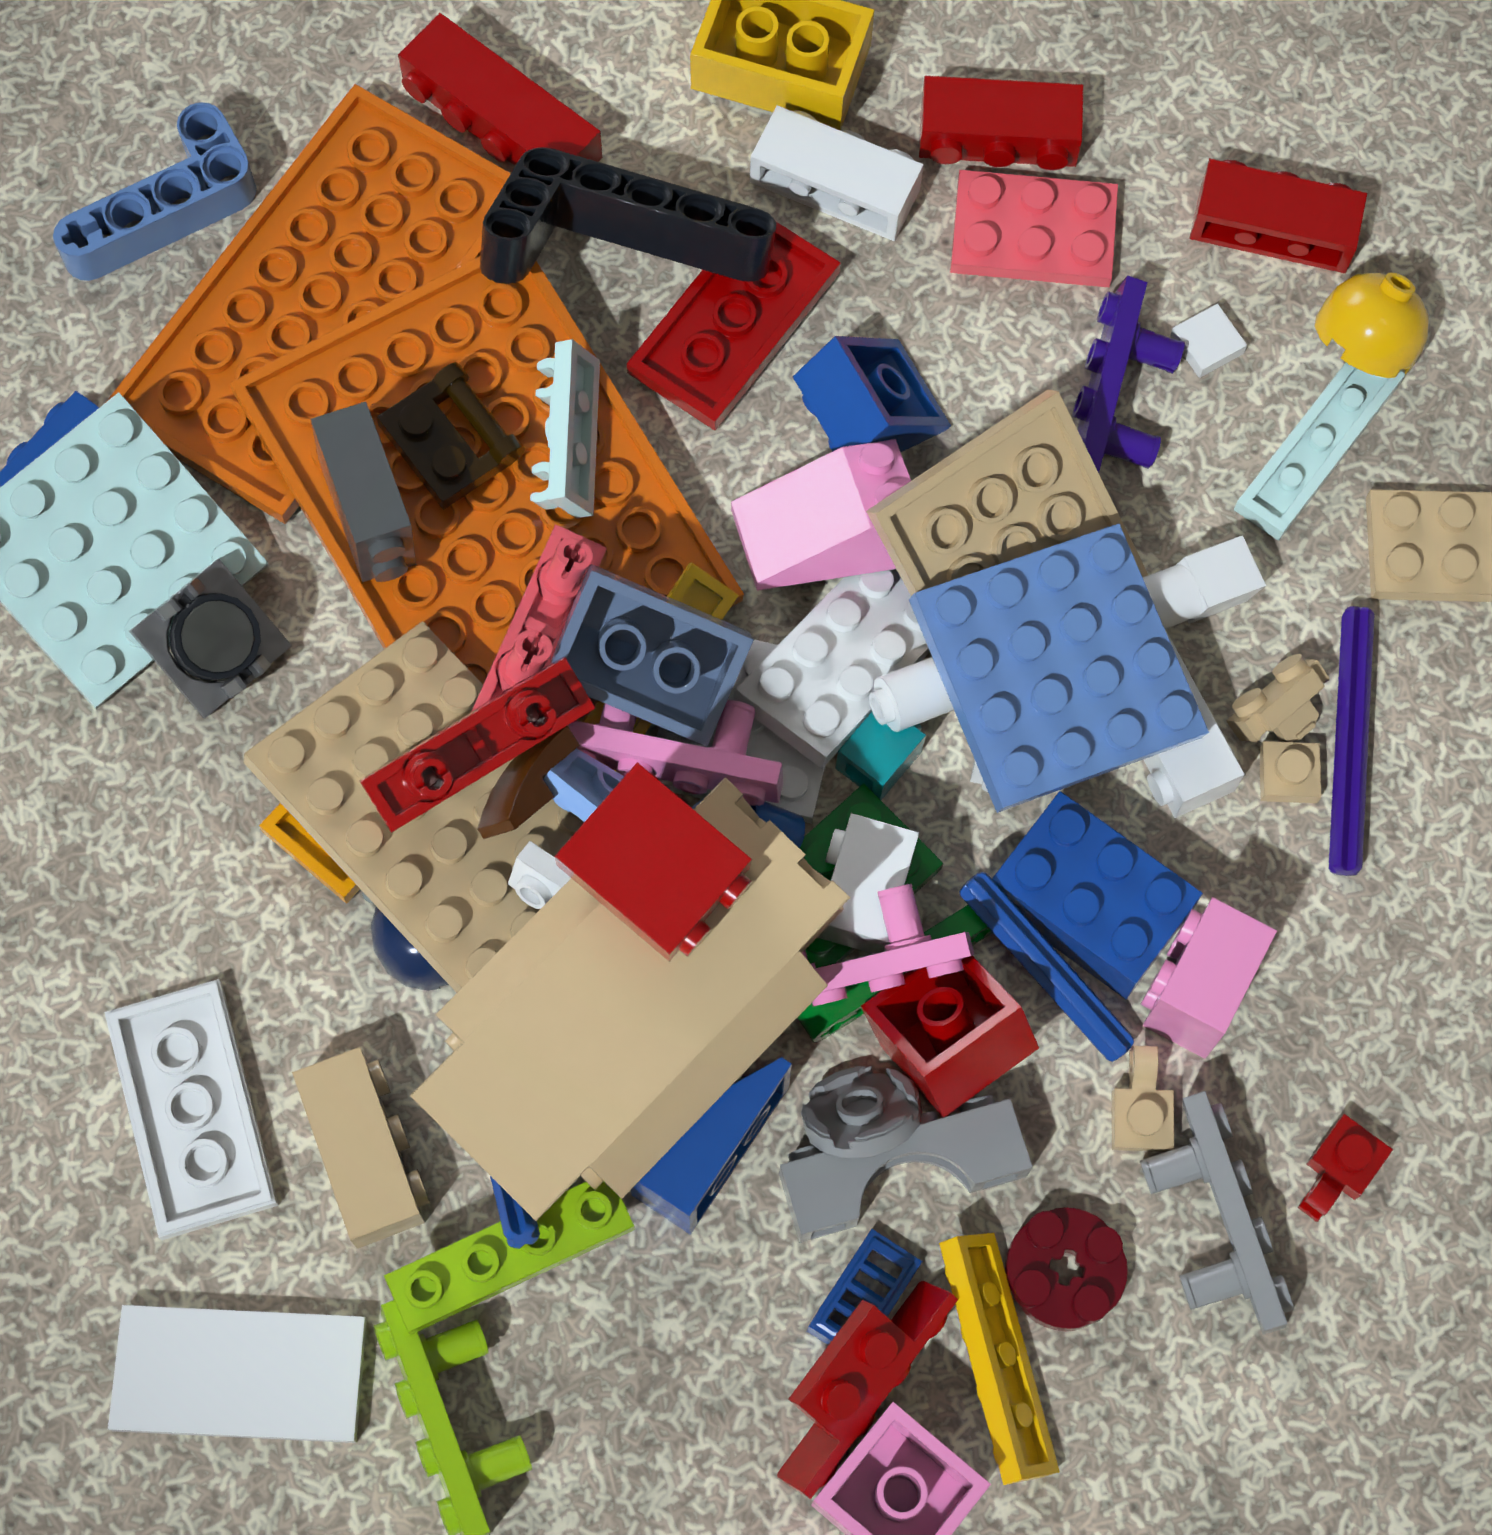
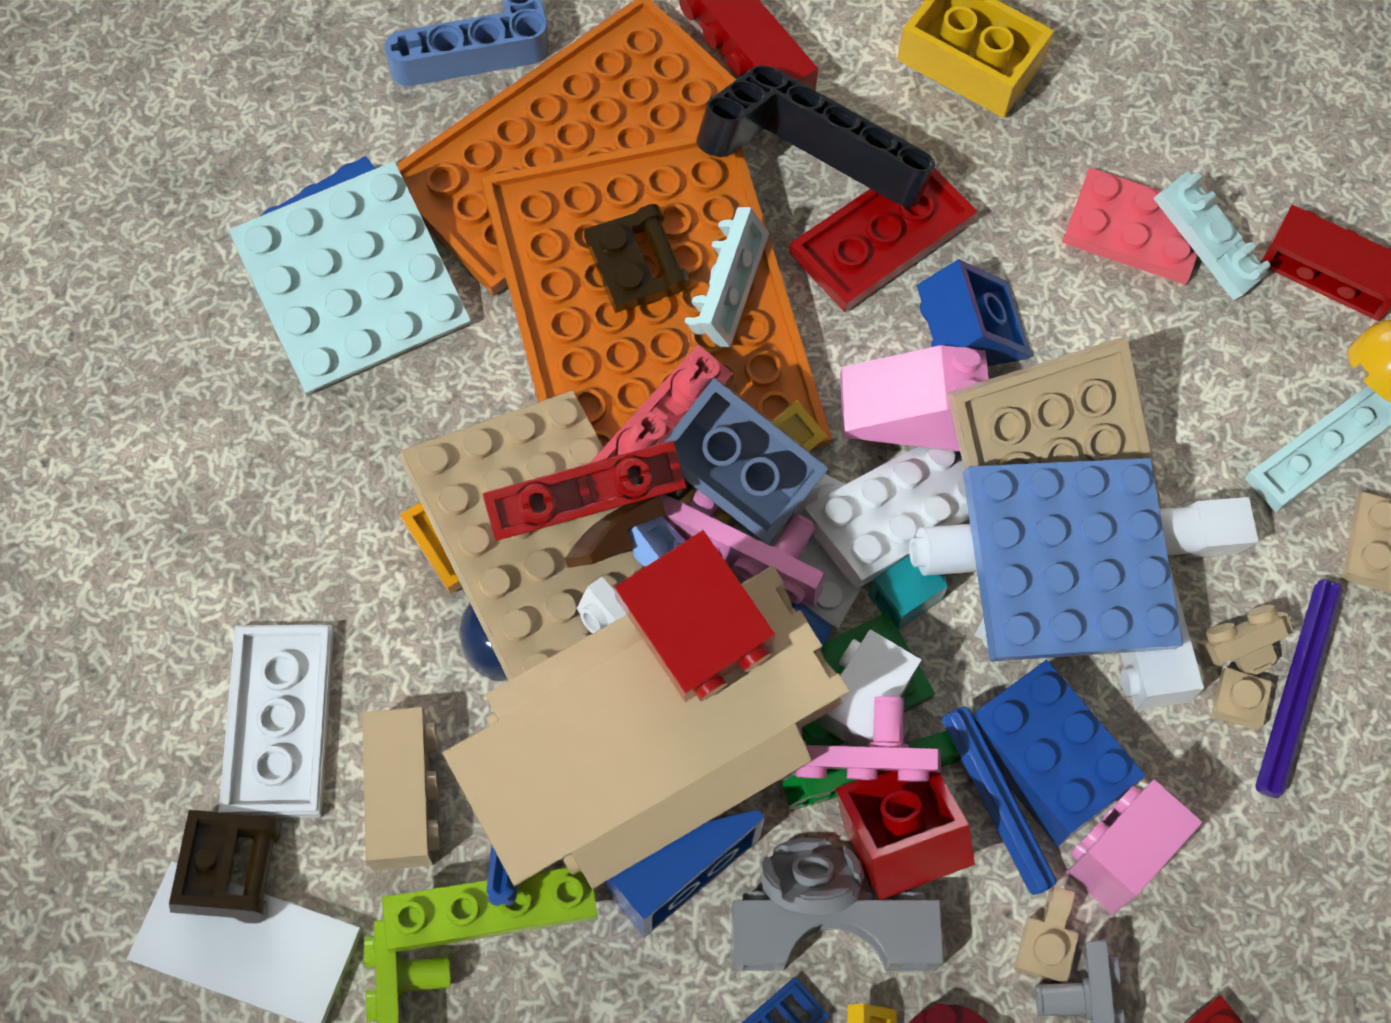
camera: 15 degrees right, 5 degrees down
(167, 1293) = (208, 862): none -> dark brown plate
(211, 638) = (408, 361): piece -> none
(364, 493) = (556, 279): dark grey brick -> none
(836, 172) = (992, 145): white brick -> none
(1001, 122) = (1131, 139): red brick -> none
(1107, 359) = (1170, 337): dark purple plate -> none
(1124, 220) = (1211, 235): none -> light aqua plate
(1209, 340) = (1255, 344): white tile -> none

